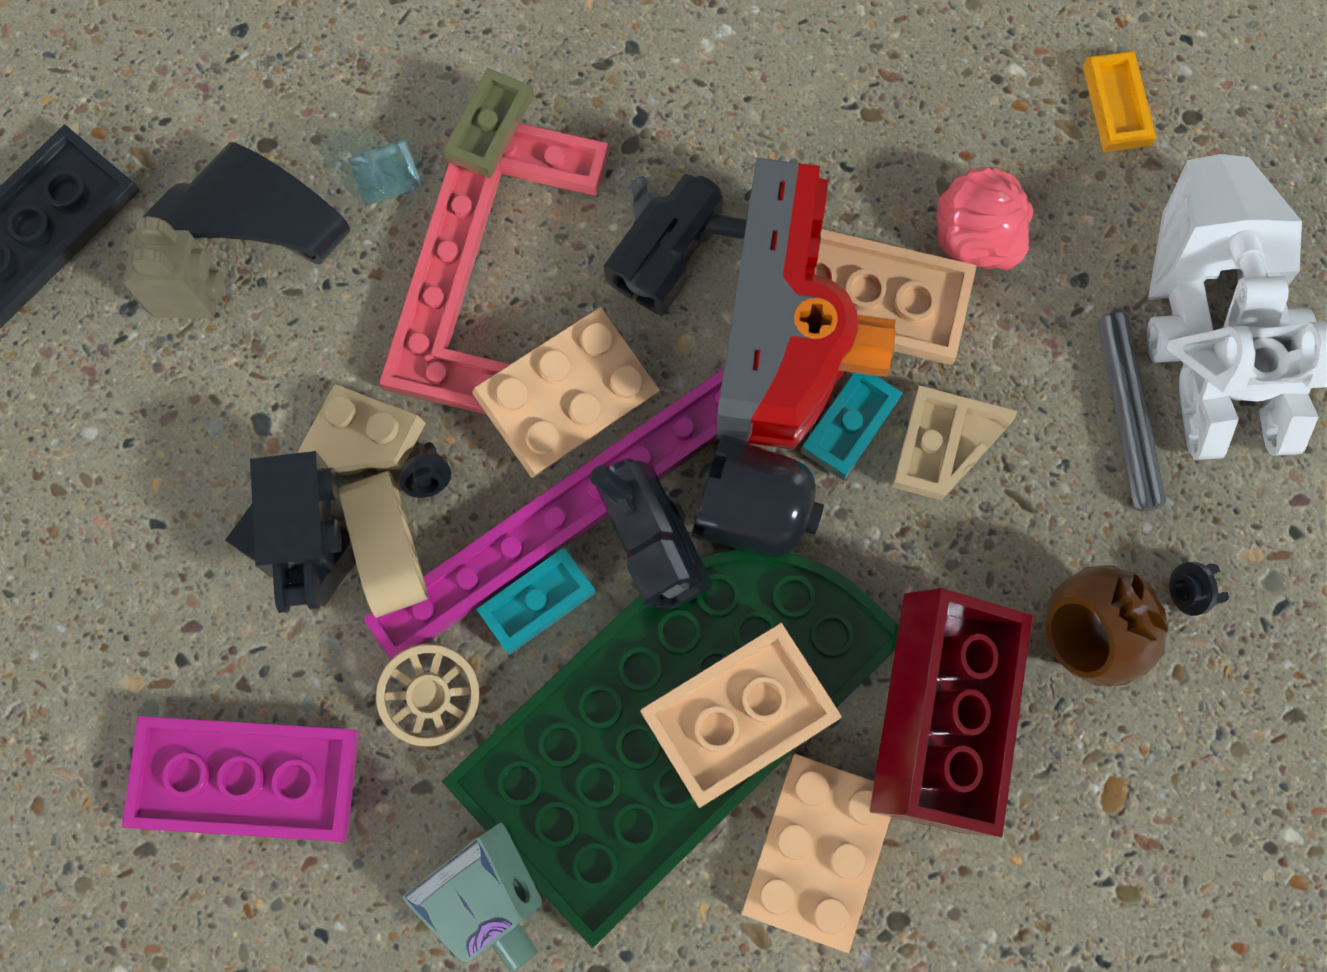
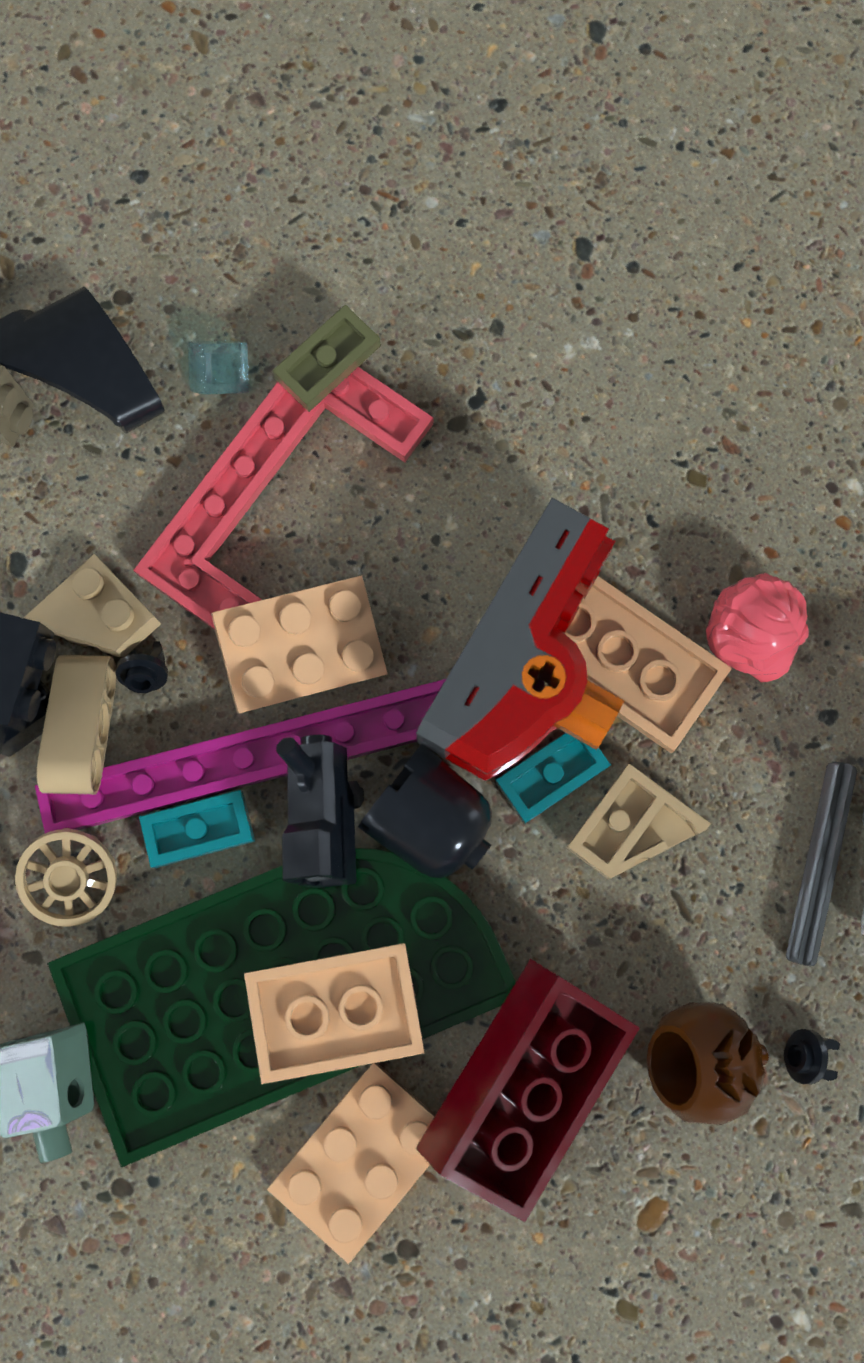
camera: 20 degrees right, 5 degrees up
(664, 237) = (451, 529): black piece -> none

